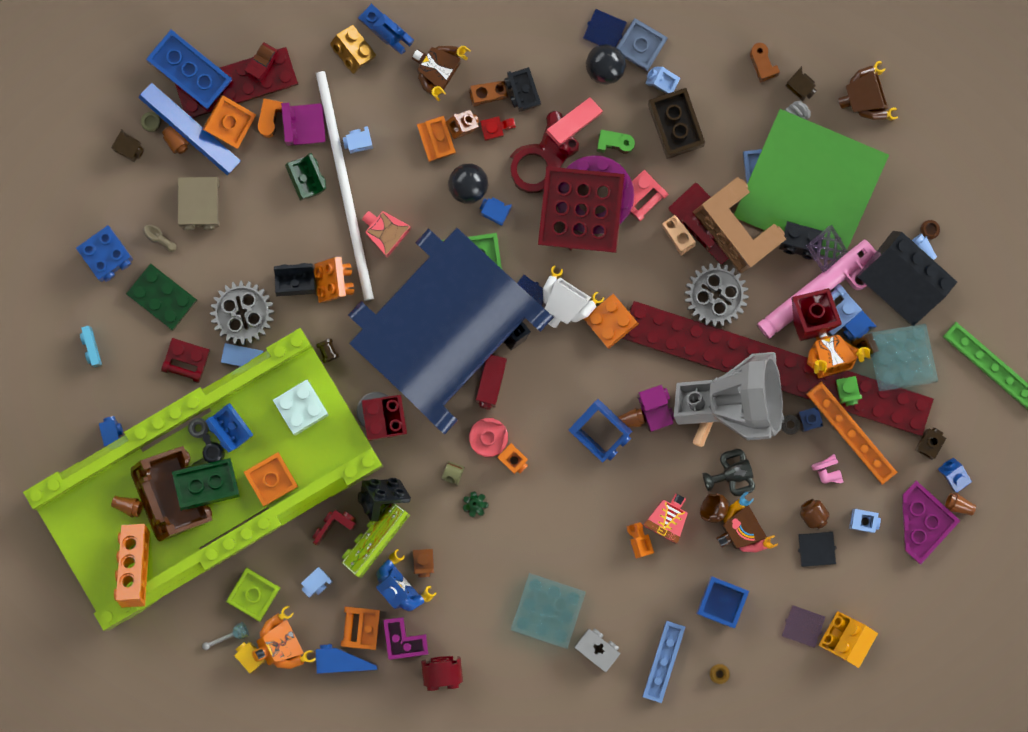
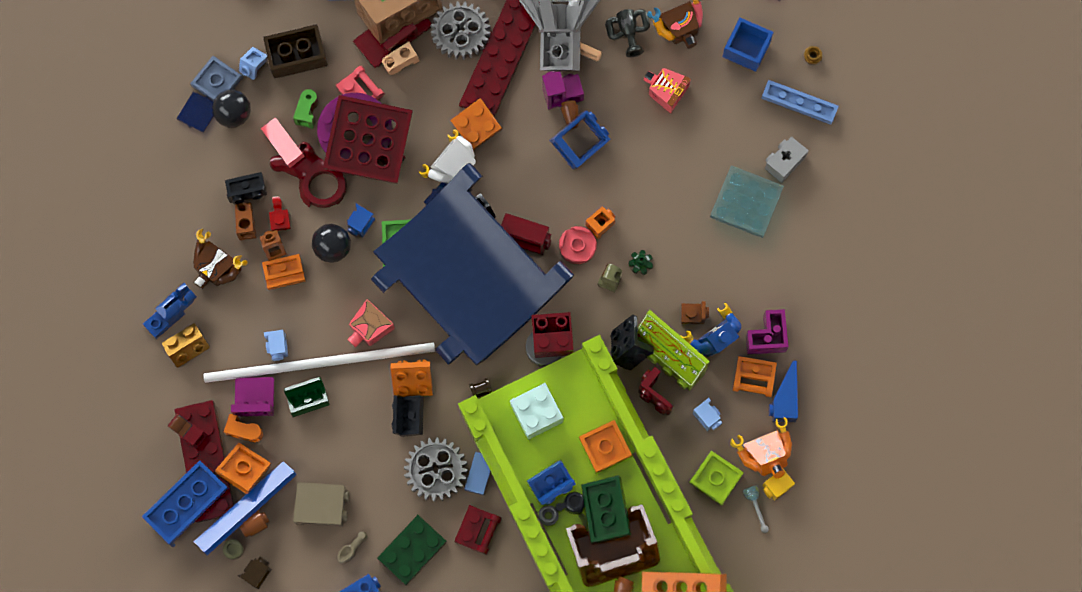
camera: 80 degrees left, 10 degrees down
(442, 672) = (802, 299): dark red brick -> none
(641, 543) = (687, 113): orange plate -> none
(714, 508) = (659, 46): reddish brown hair -> none

